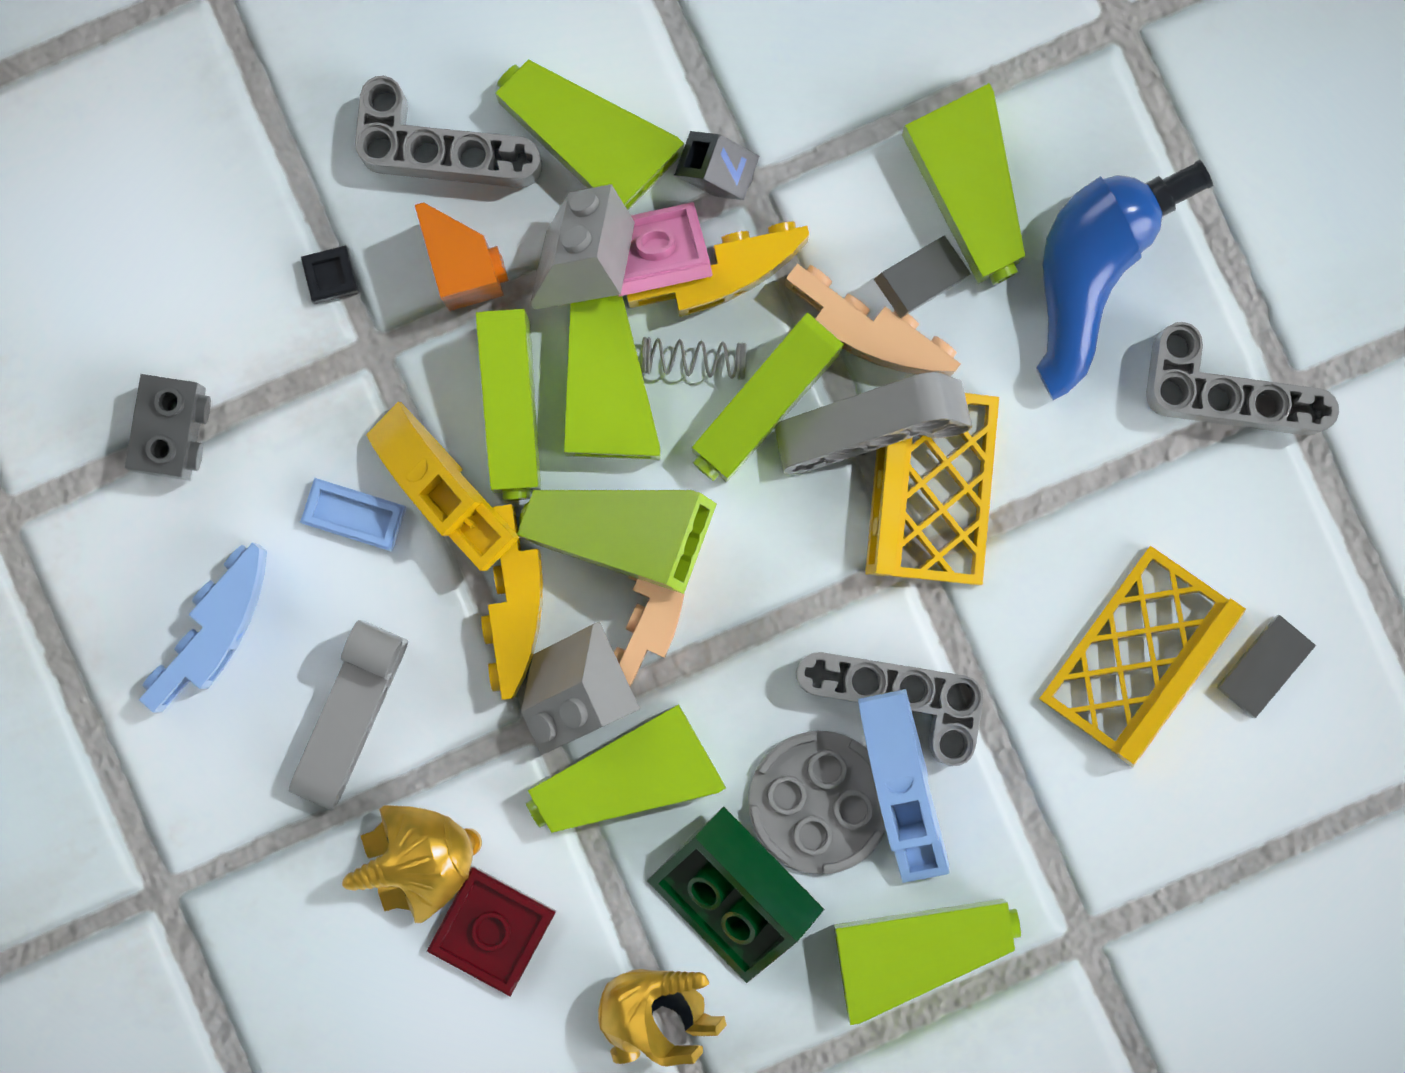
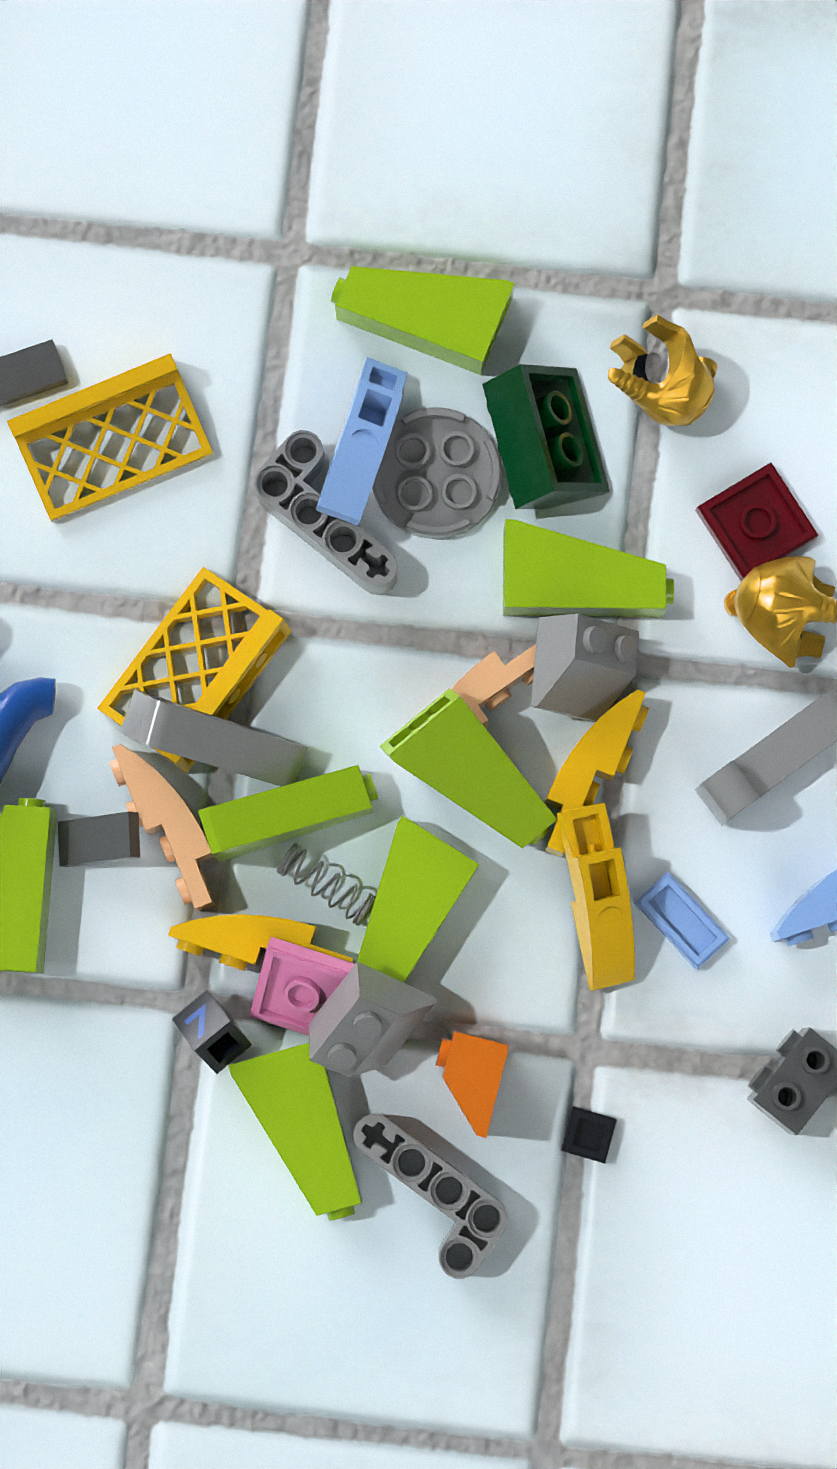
camera: 150 degrees left, 5 degrees down
(509, 402) = (501, 931): lime slope -> none

